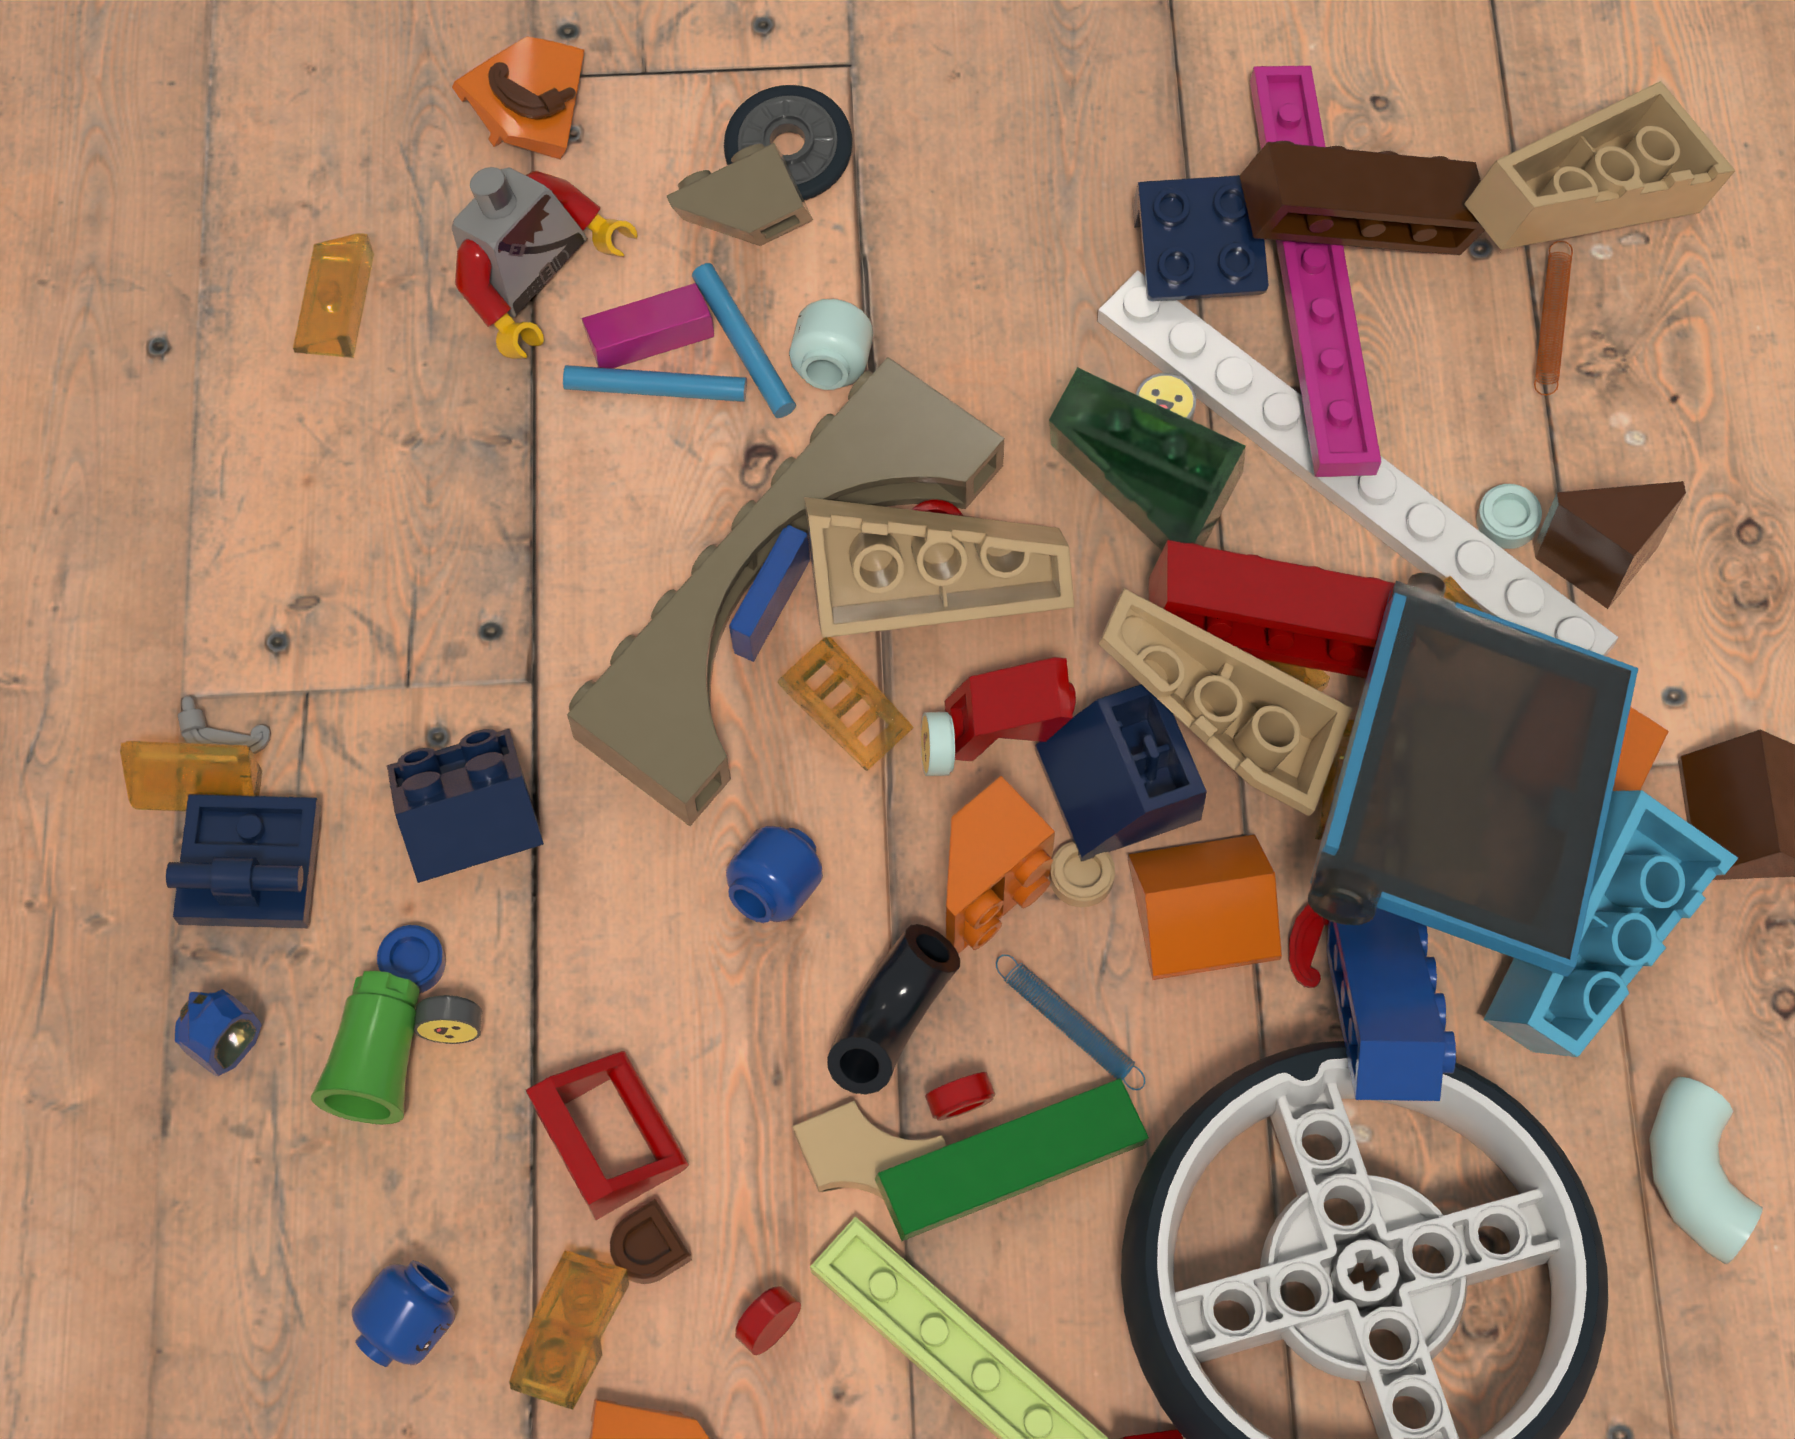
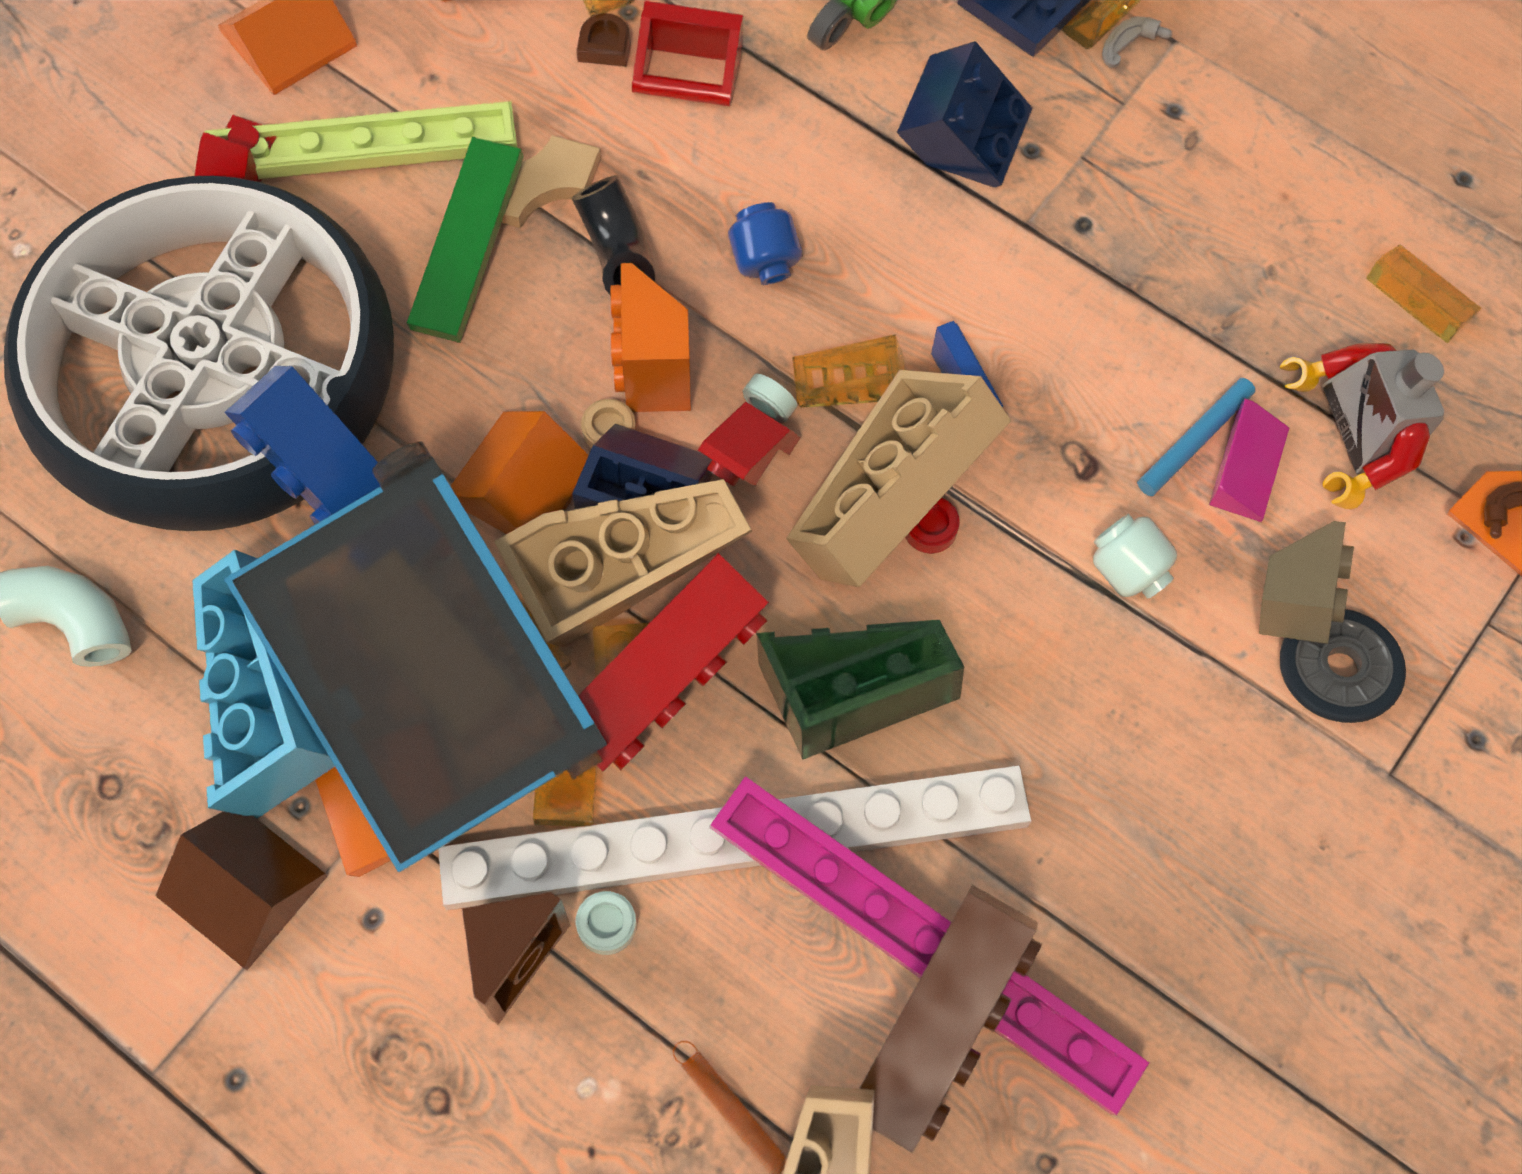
camera: 125 degrees right, 0 degrees up
(413, 955) = (889, 40): blue tile -> none
(653, 704) = (1023, 530): dark tan arch -> none
(743, 340) = (1190, 515): dark azure bar -> none
(767, 1319) = (501, 57): red tile -> none
(960, 1096) = (530, 241): red tile -> none
(1118, 1073) = (524, 336): dark azure piece -> none
(1169, 392) = (903, 753): light yellow tile -> none
(1198, 239) = (1022, 866): dark blue bracket -> none

